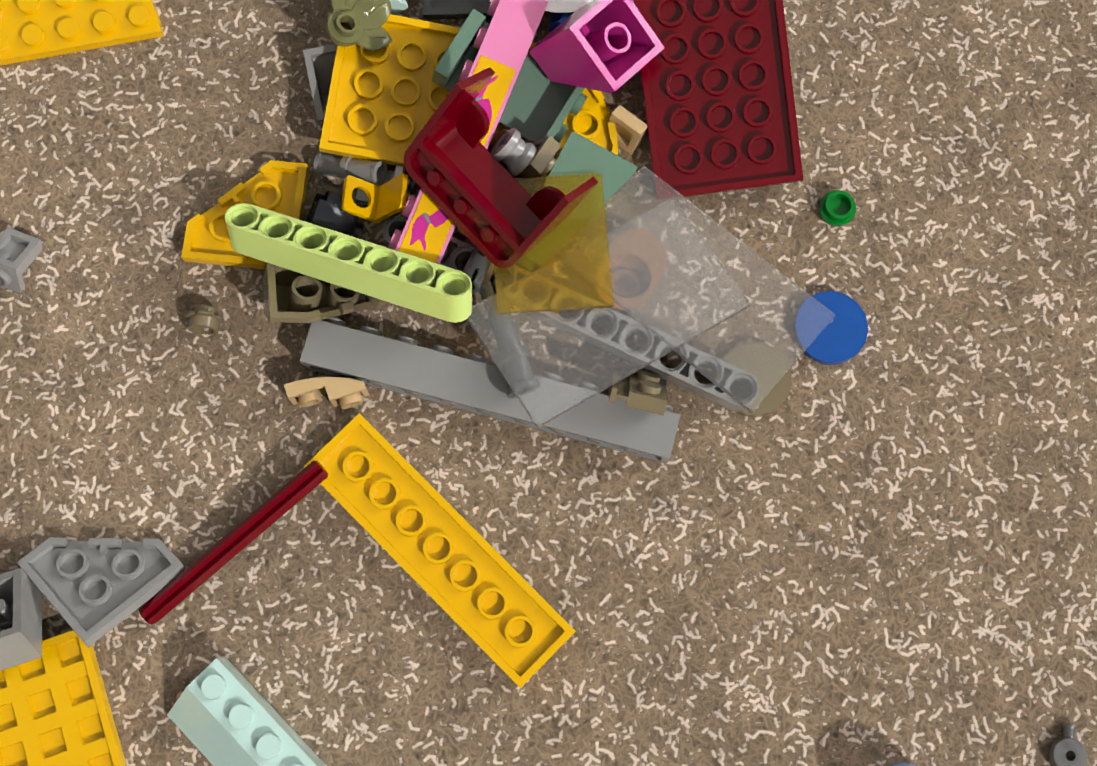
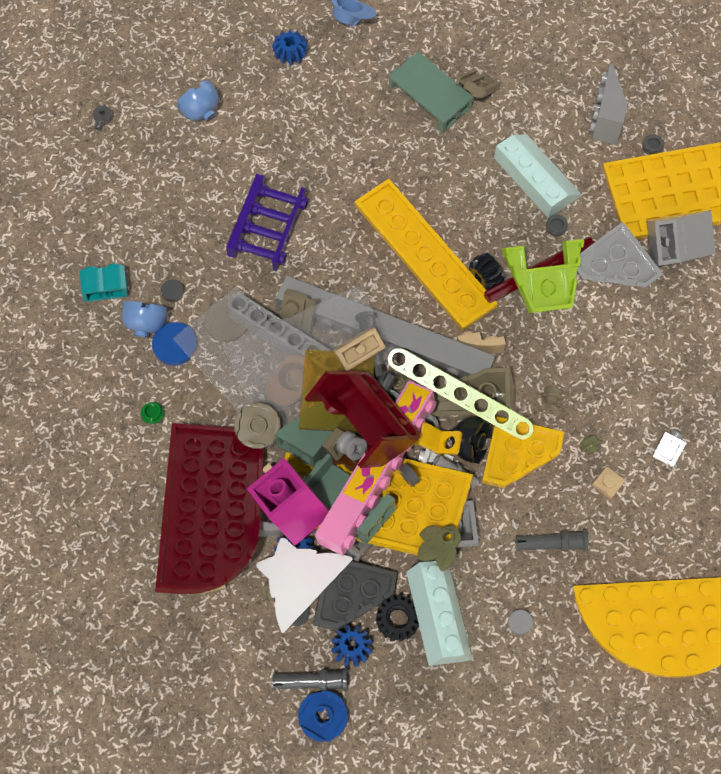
camera: 170 degrees left, 10 degrees down
(110, 193) = (608, 482): none -> tan plate
(136, 243) = (590, 445): none -> olive plate
(178, 92) = (564, 541): none -> dark grey pin
(210, 642) = (556, 225): none -> dark grey tile
(212, 507) = (546, 286): none -> lime wing
(325, 518) = (486, 270): none -> black gear
(413, 121) = (409, 475): none -> dark grey tile
(525, 313) = (359, 348): none -> tan slope
(668, 187) = (257, 425): none -> dark tan tile
(759, 555) = (252, 207): none -> dark purple fence
(856, 420) = (172, 290): none -> dark grey tile
(897, 353) = (143, 317): none -> medium blue cylinder
(974, 413) = (103, 282): none -> teal brick

